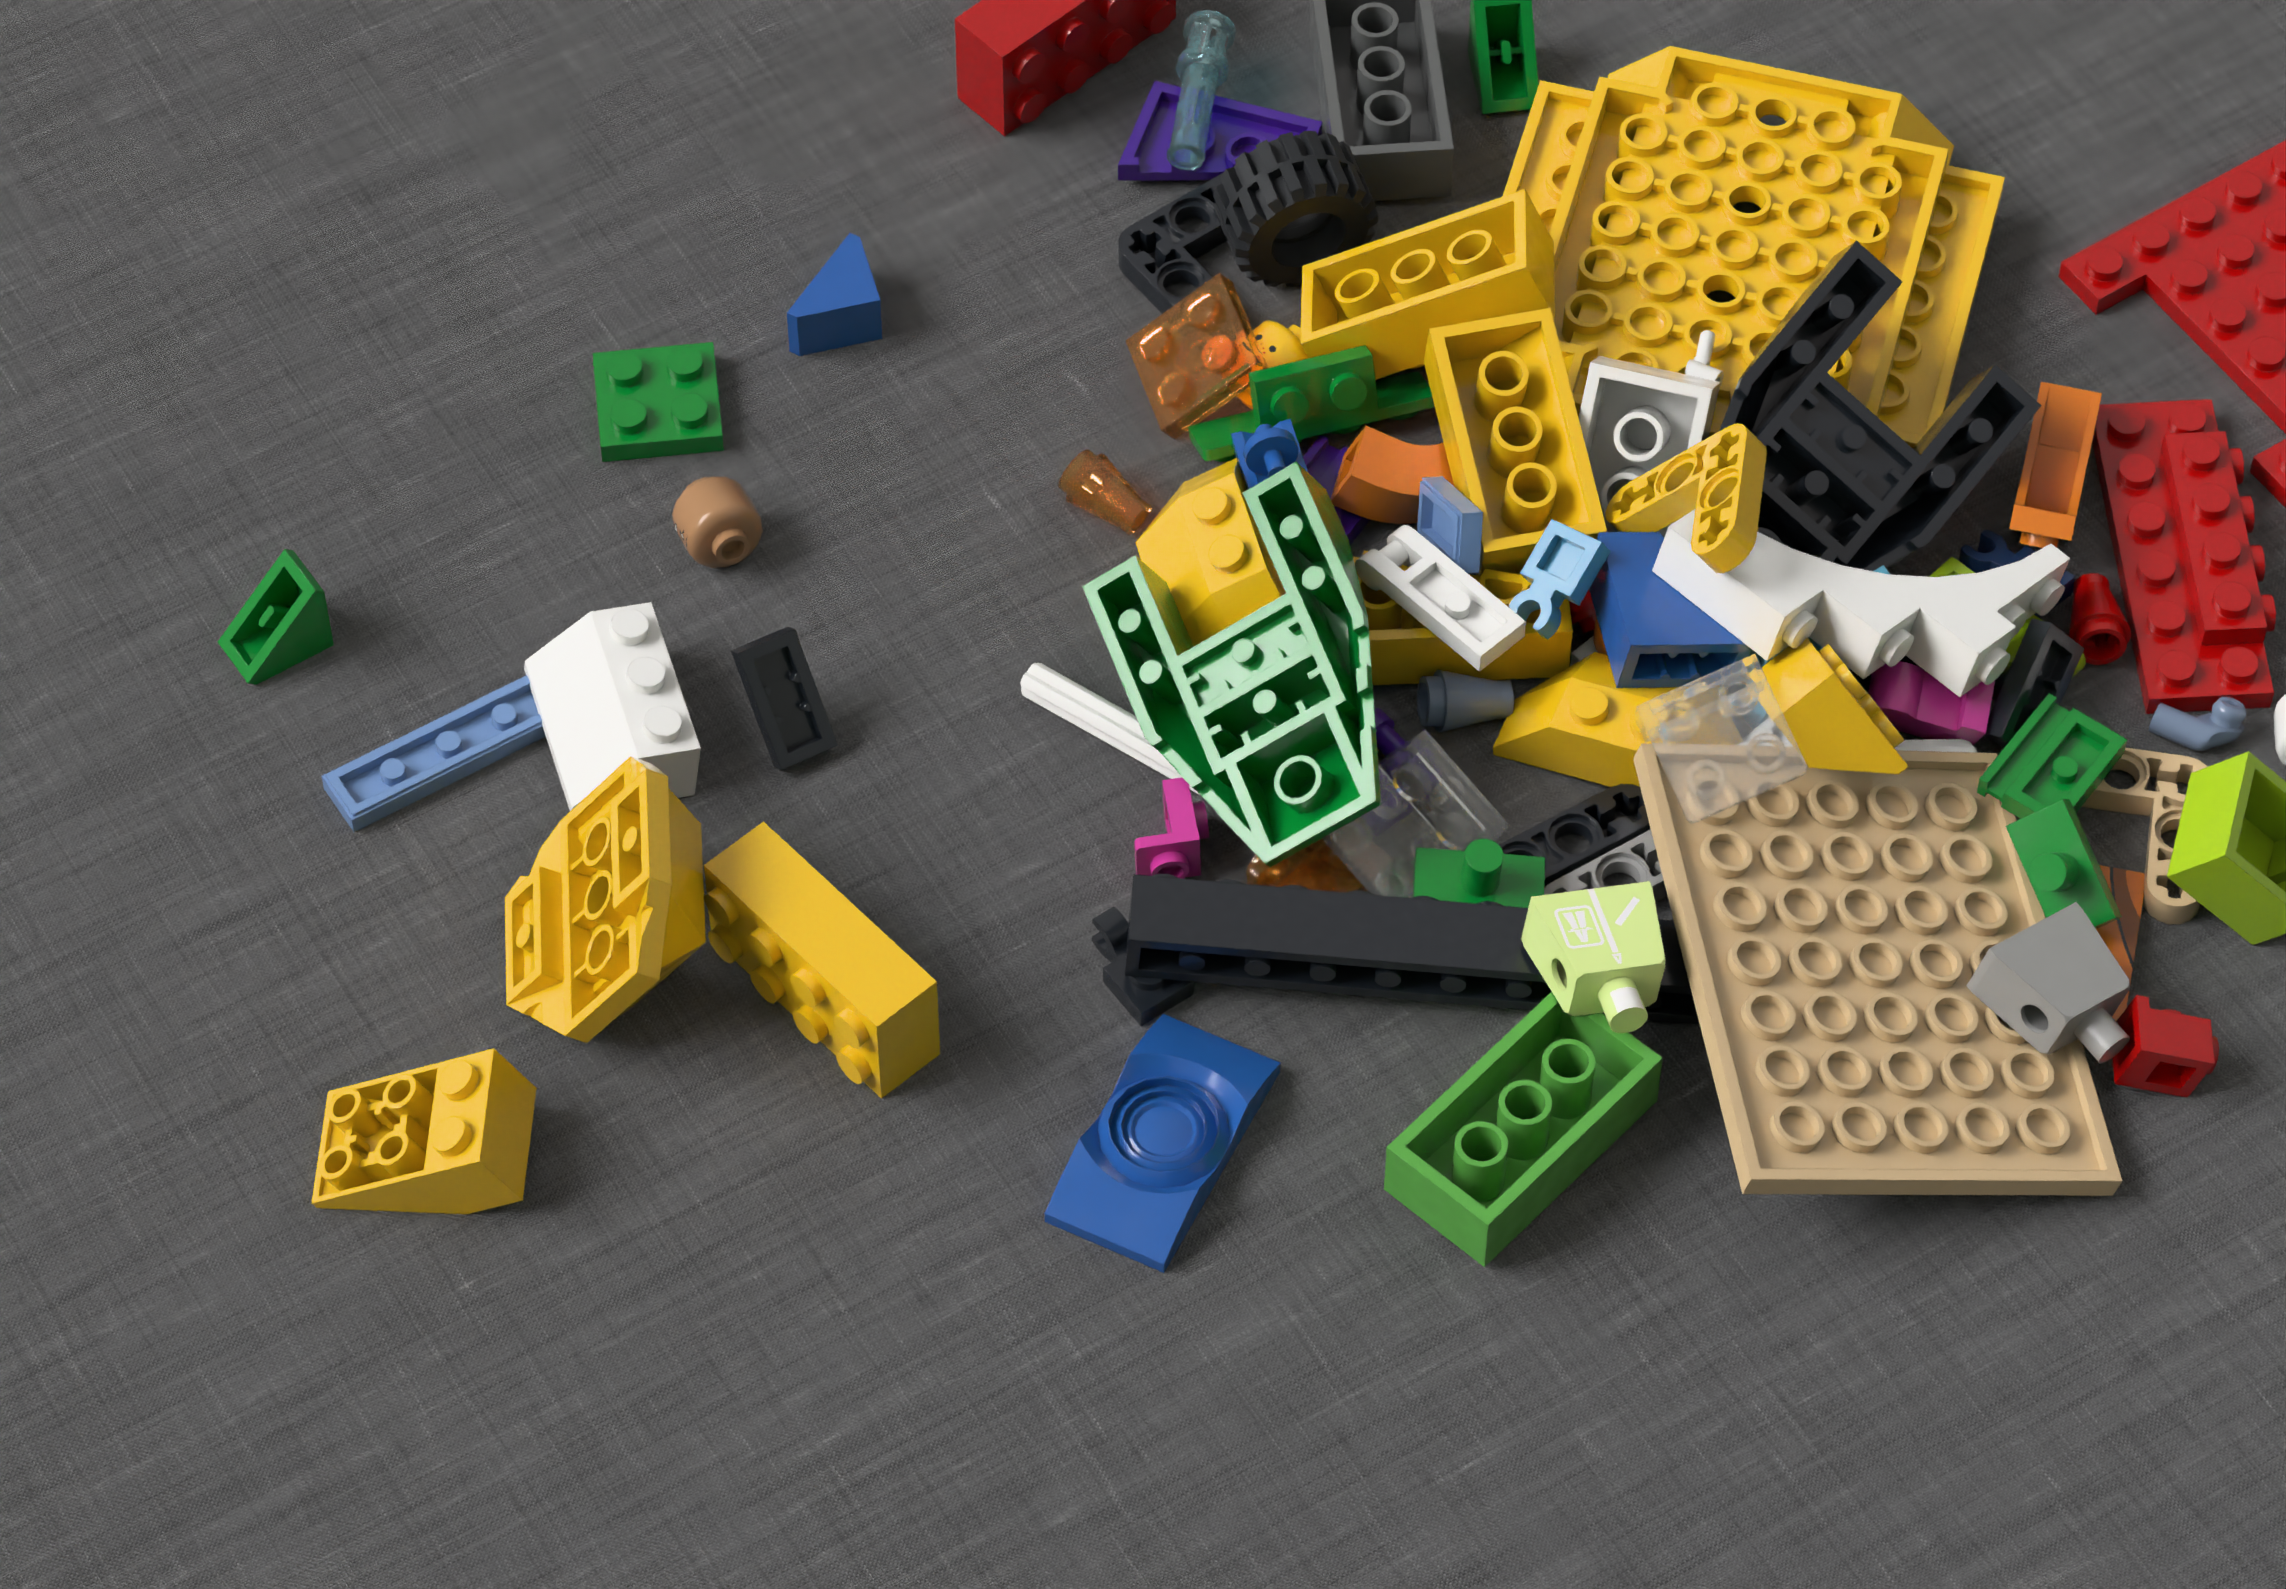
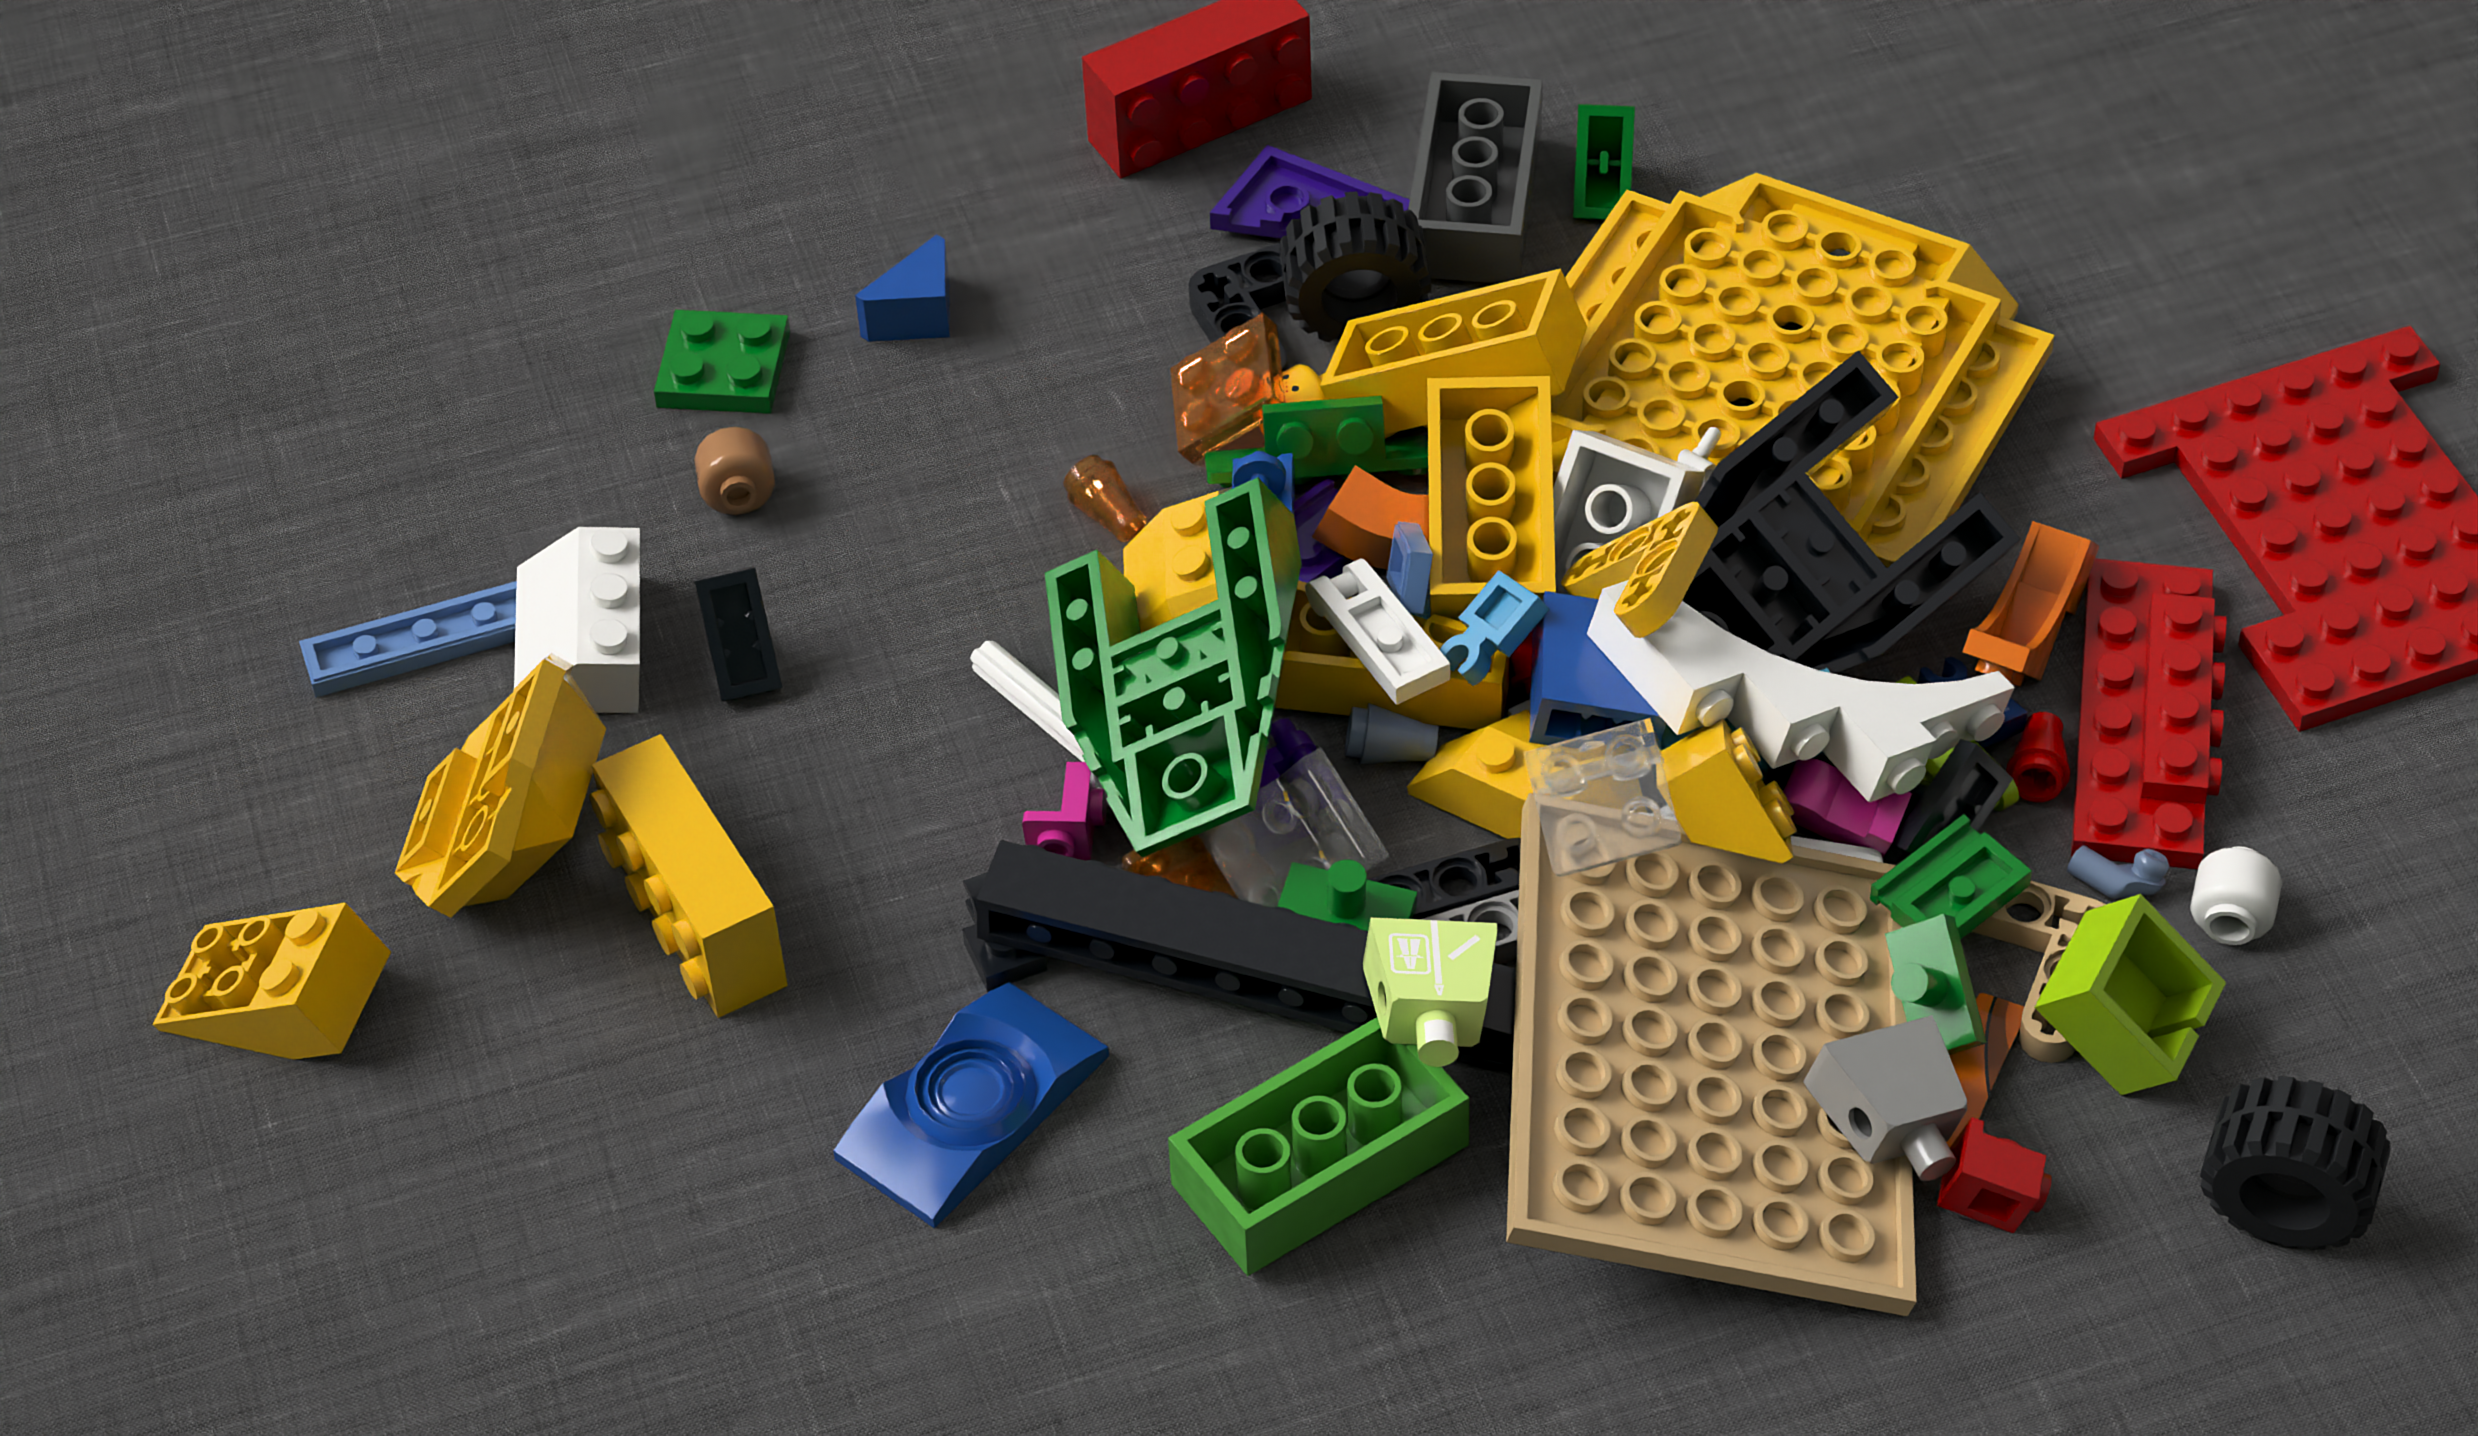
camera: 15 degrees right, 5 degrees down
(279, 622) = (306, 501): green slope -> none
(1202, 71) = (1279, 196): clear light blue pin -> none

